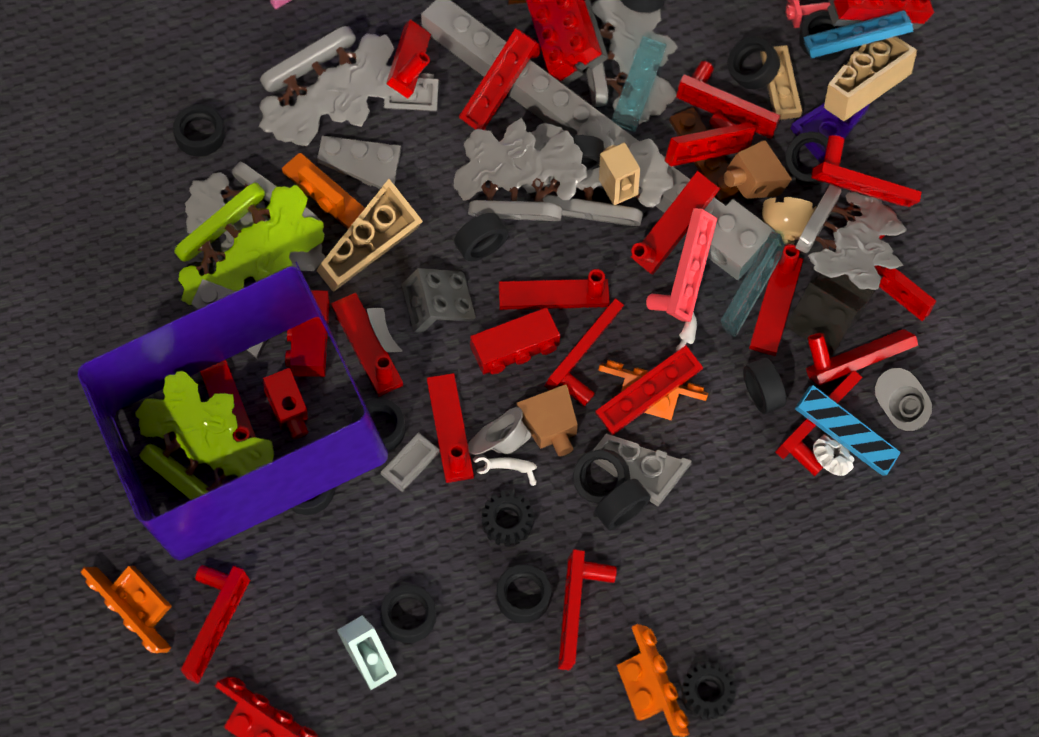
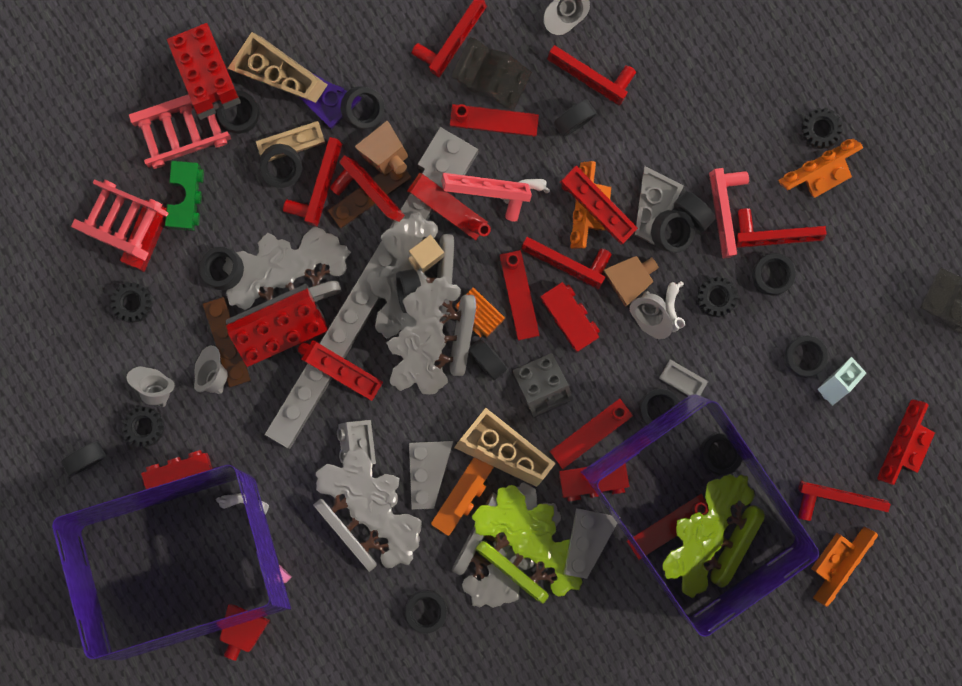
camera: 100 degrees left, 20 degrees up
(284, 393) = (654, 487): red torso -> none
(378, 323) = (578, 424): light grey sticker -> none
(409, 59) = (352, 448): red piece -> none
(450, 428) = (649, 355): red piece -> none
(539, 244) = (486, 316): none -> orange brick
(638, 83) = (315, 257): clear light blue tile -> none
(655, 546) = (719, 182): none -> coral piece
(753, 284) = (486, 138): clear light blue tile -> none
(787, 217) = (424, 118): tan cylinder -> none
(823, 451) = (622, 66): white gear -> none
(828, 369) = (532, 50): red piece -> none
(832, 173) = (382, 87): red piece -> none
(847, 430) = (600, 51): dark azure tile -> none
(857, 243) = (441, 60): light grey plant -> none
(858, 34) = (244, 81): dark azure tile -> none

